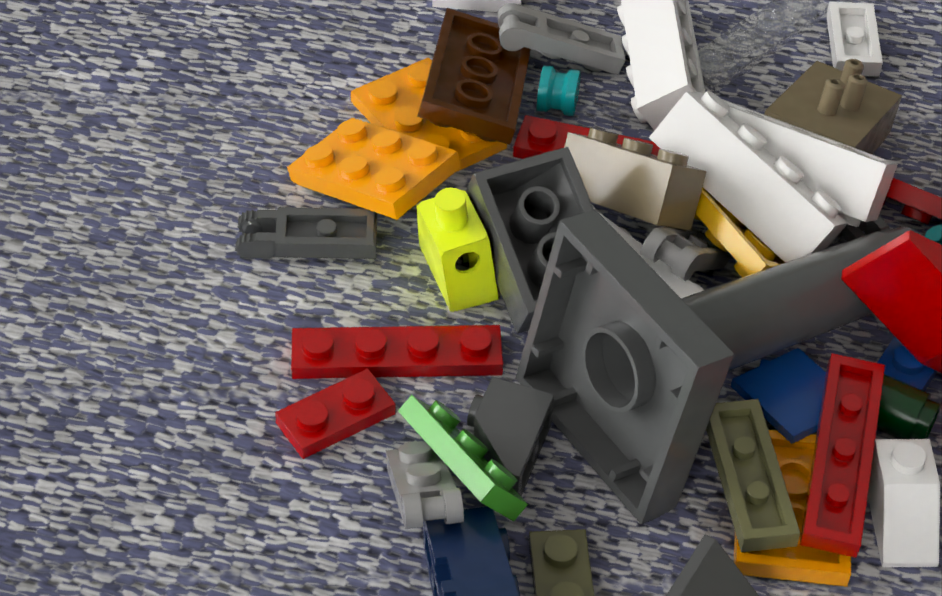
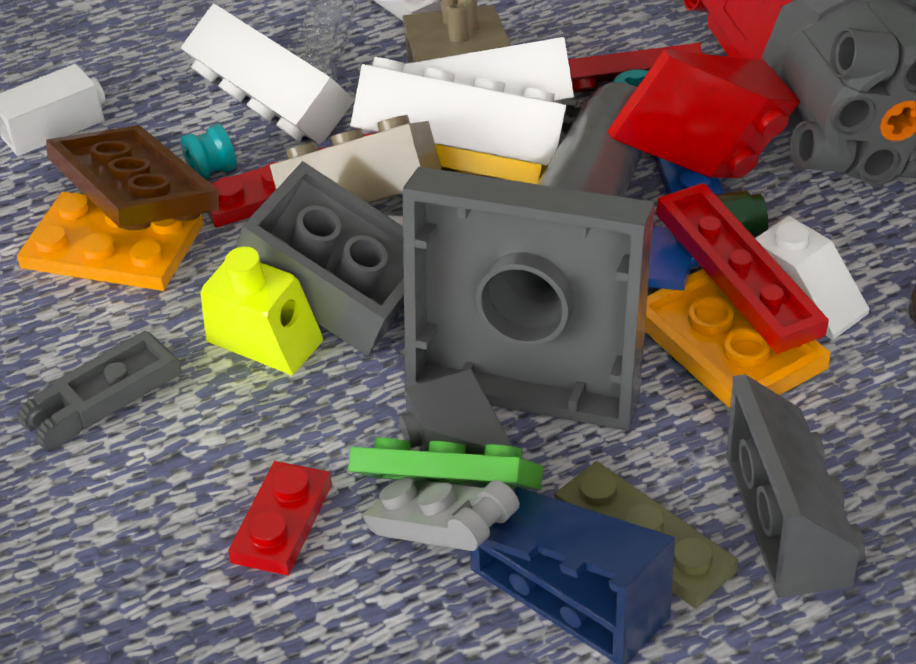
camera: 35 degrees left, 5 degrees down
(374, 167) = (109, 299): light orange plate -> none
(397, 351) = (278, 434): red plate -> none
(559, 38) = (169, 112): light grey plate -> none
(751, 477) = (705, 333): olive plate -> none

